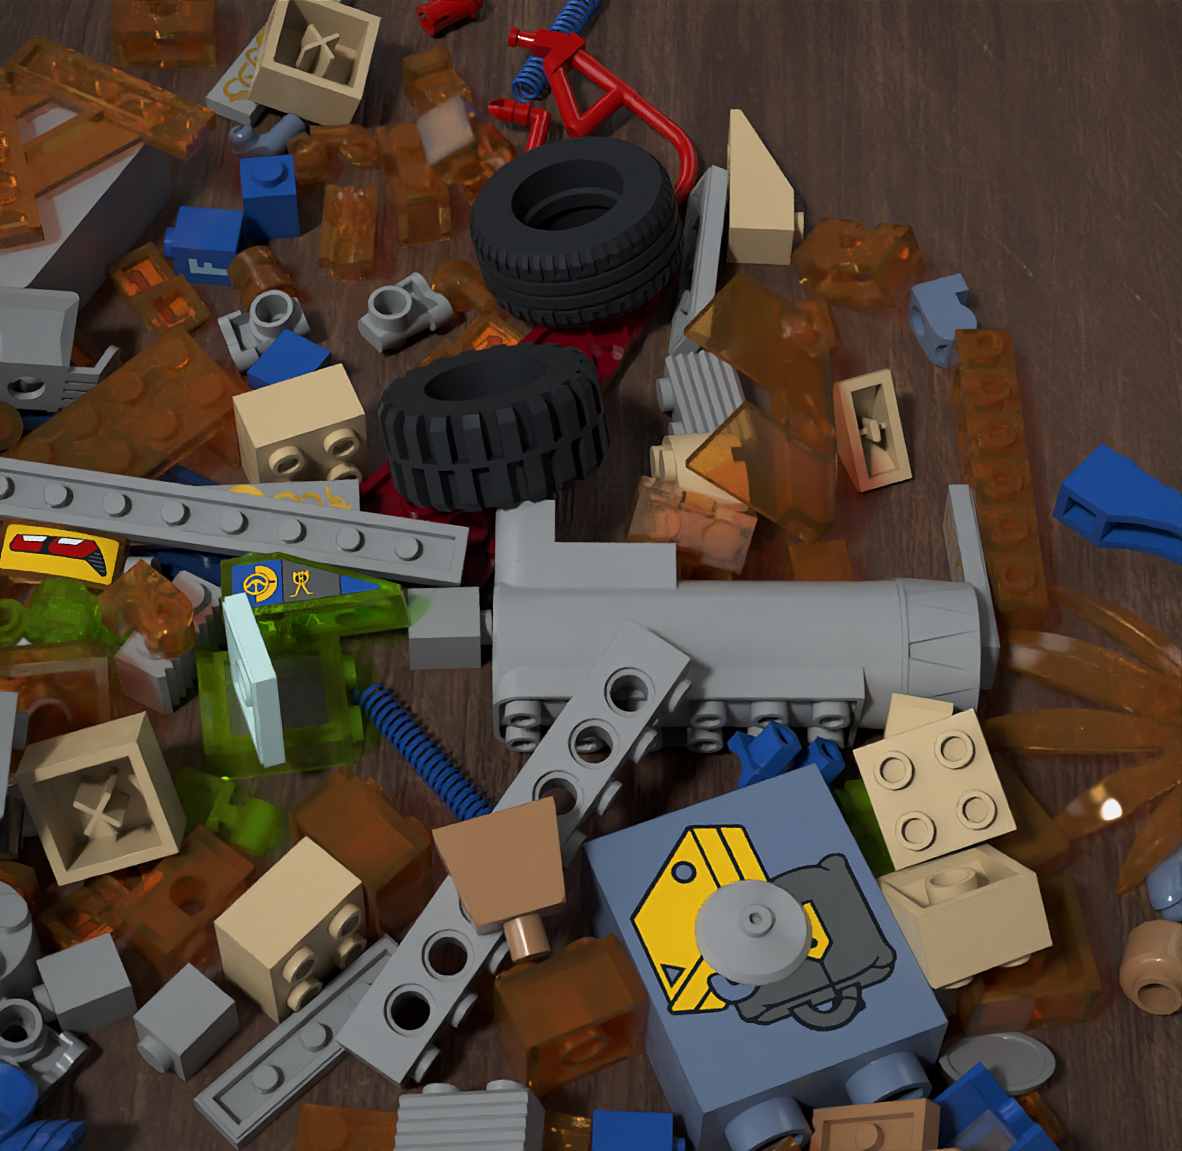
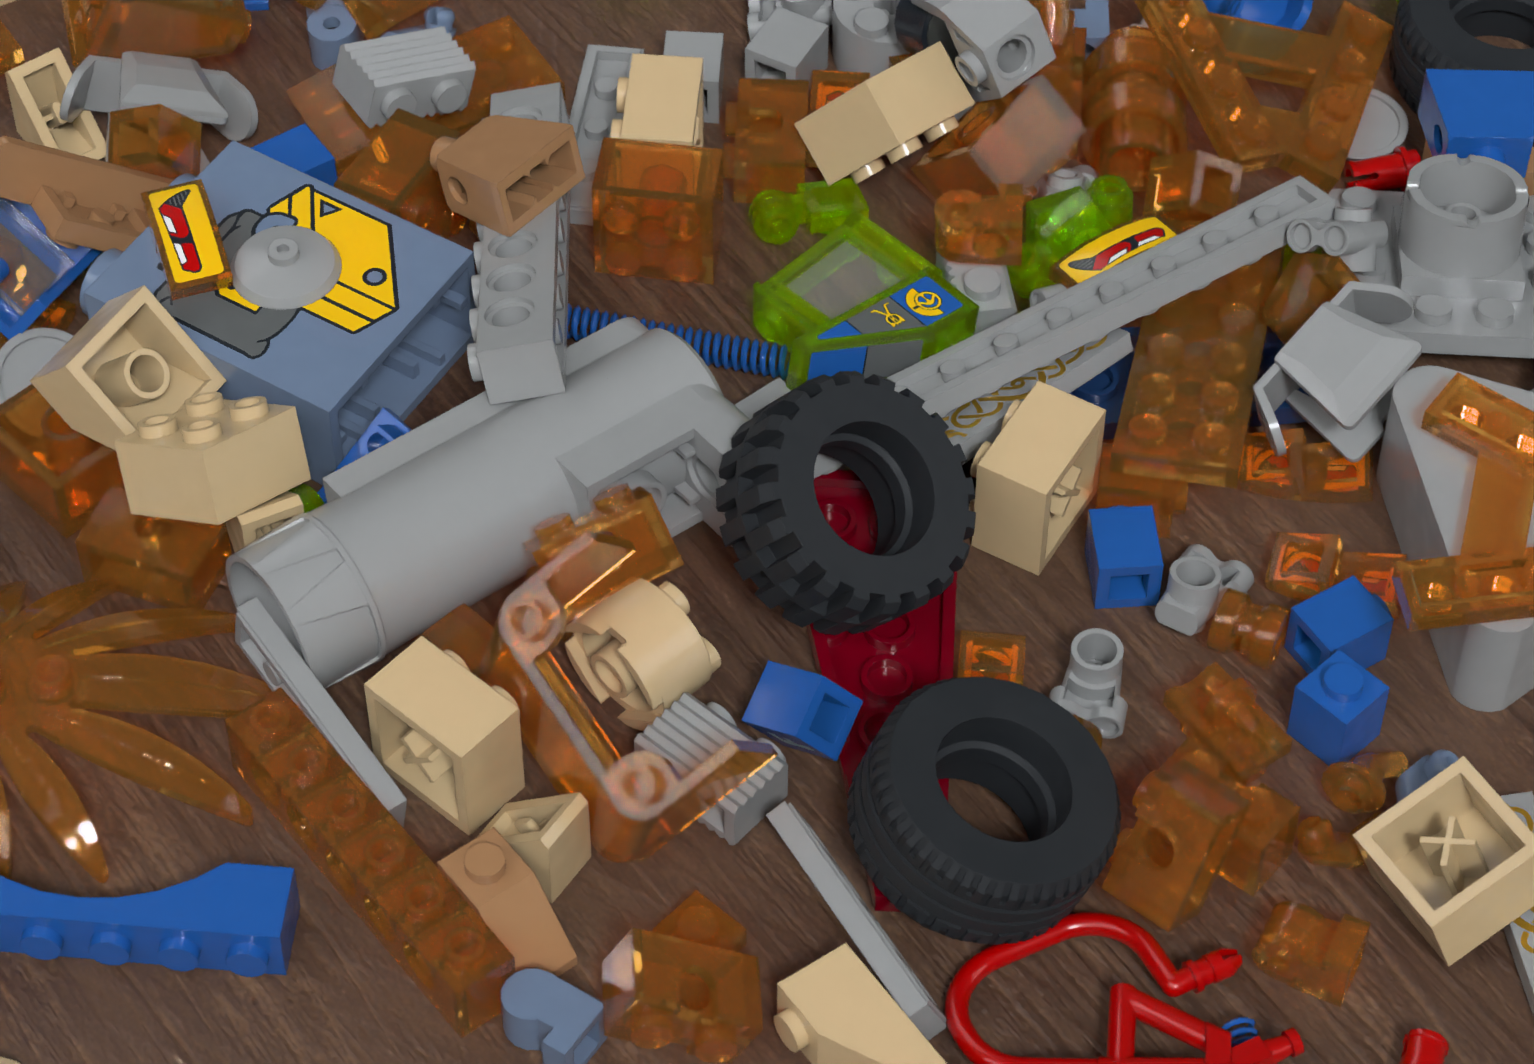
camera: 145 degrees right, 5 degrees down
(254, 680) = (845, 218): light aqua tile -> none
(630, 388) = (802, 710): none -> blue brick
(829, 995) = (187, 239): none -> slope
(888, 506) = (446, 734): none -> tan brick
(928, 407) = (510, 902): none -> medium nougat slope

